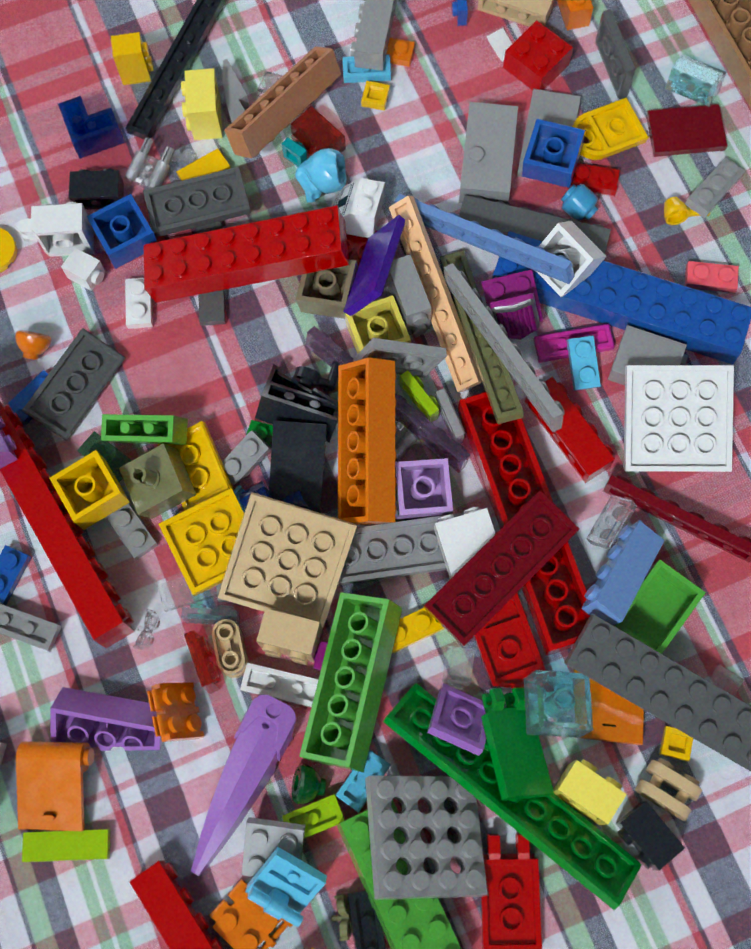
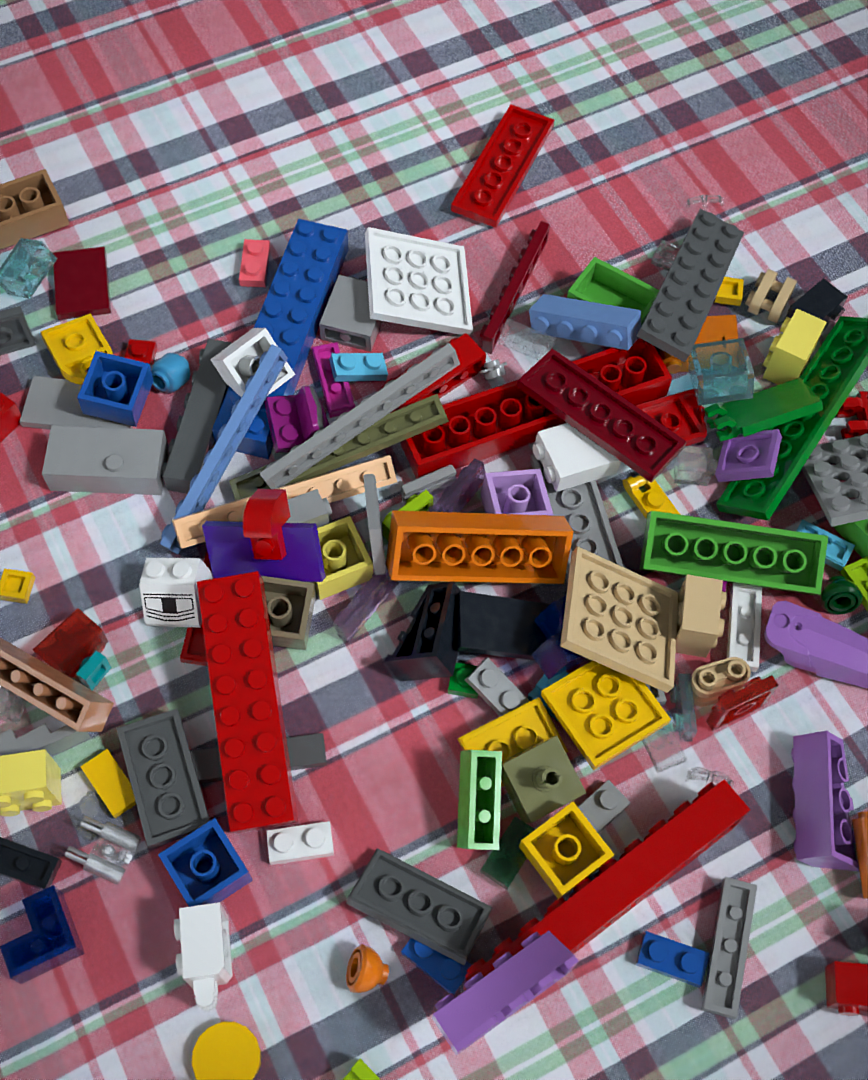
camera: 100 degrees left, 10 degrees down
(83, 269) = (258, 916): white brick -> none
(95, 188) = (137, 917): black brick -> none
(175, 711) = (801, 725): orange plate -> none
(312, 378) = (392, 626): black plate -> none
(322, 173) = (129, 631): medium azure piece -> none
(390, 253) = (263, 522): none -> red brick
(577, 486) = (493, 369): none -> light grey plate
(677, 211) = (179, 288): yellow bar -> none
(715, 187) = (155, 255): light grey plate -> none

